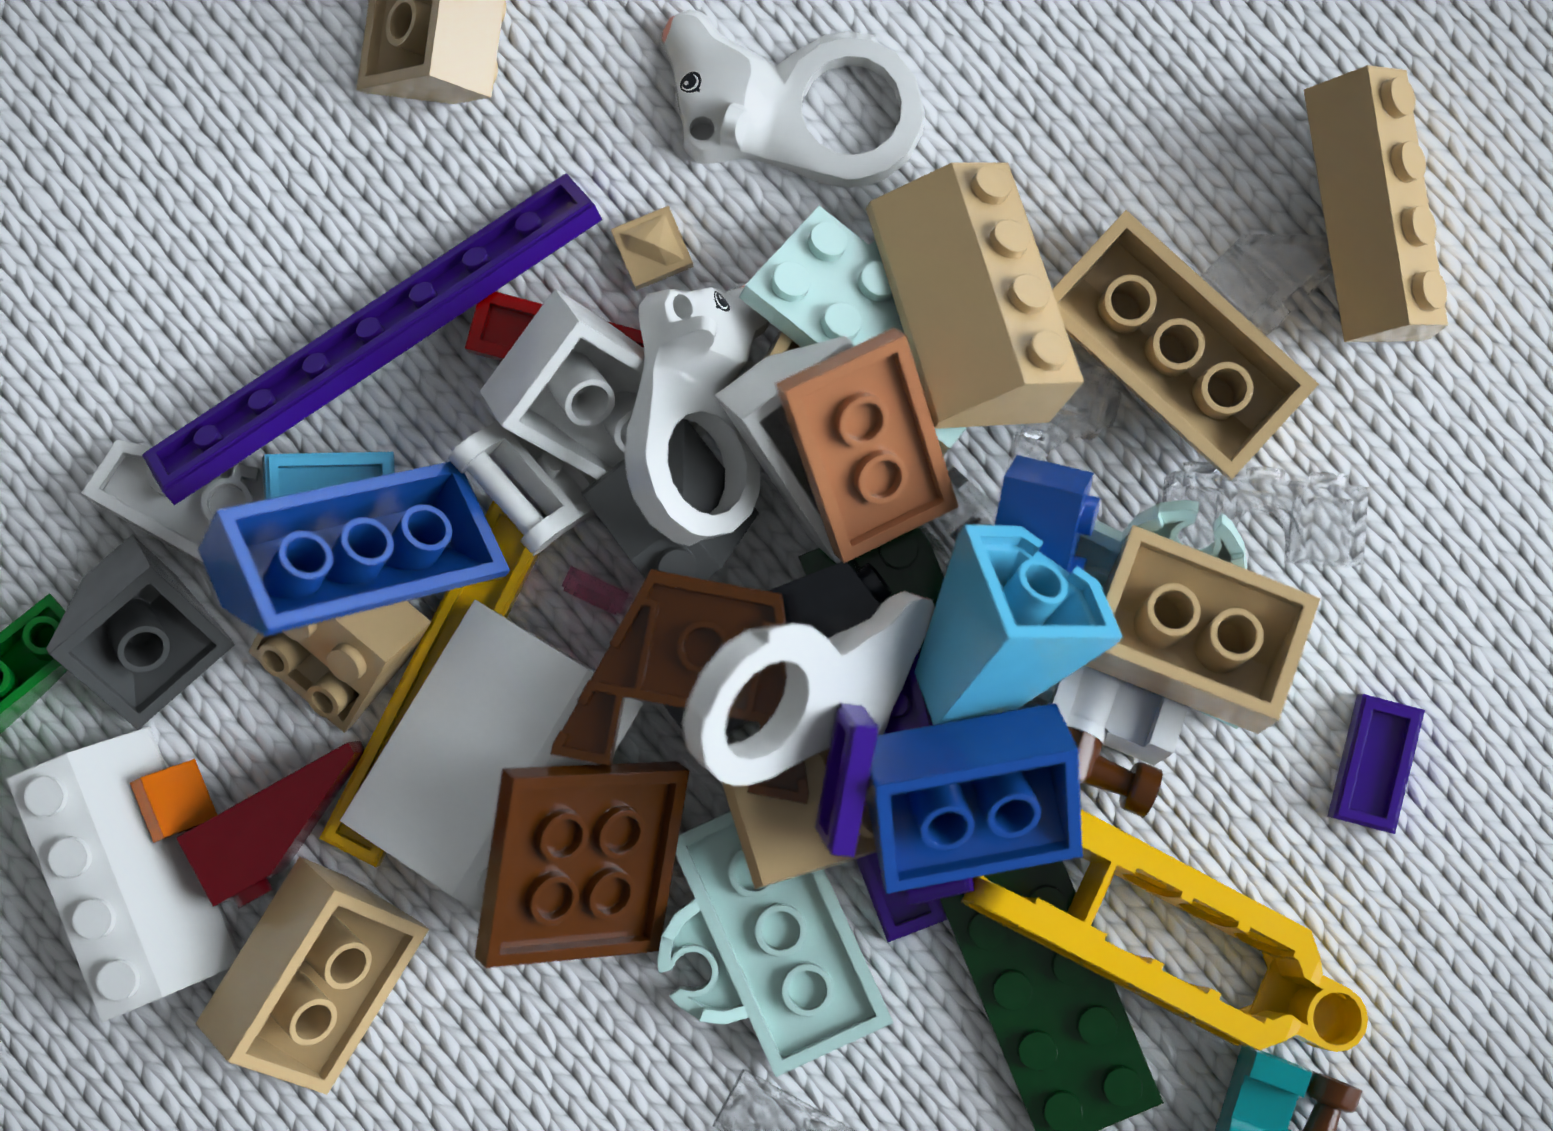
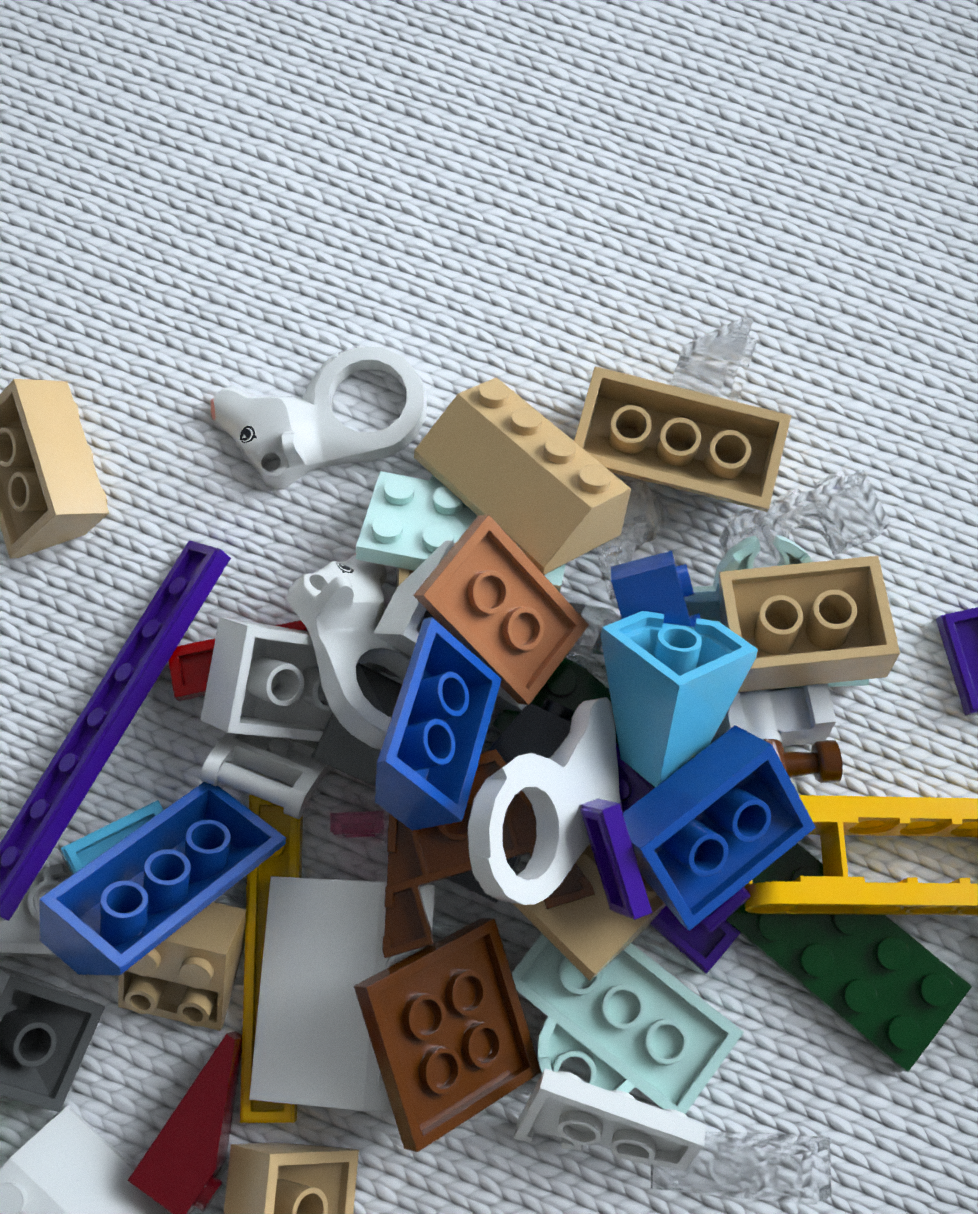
camera: 25 degrees left, 10 degrees down
(173, 800) = (111, 1152): orange tile -> none
(652, 248) = (276, 561): tan tile -> none
(685, 1023) = (591, 1115): none -> white wing
(725, 546) = (435, 731): none -> blue slope
(1376, 206) = (764, 282): tan slope -> none

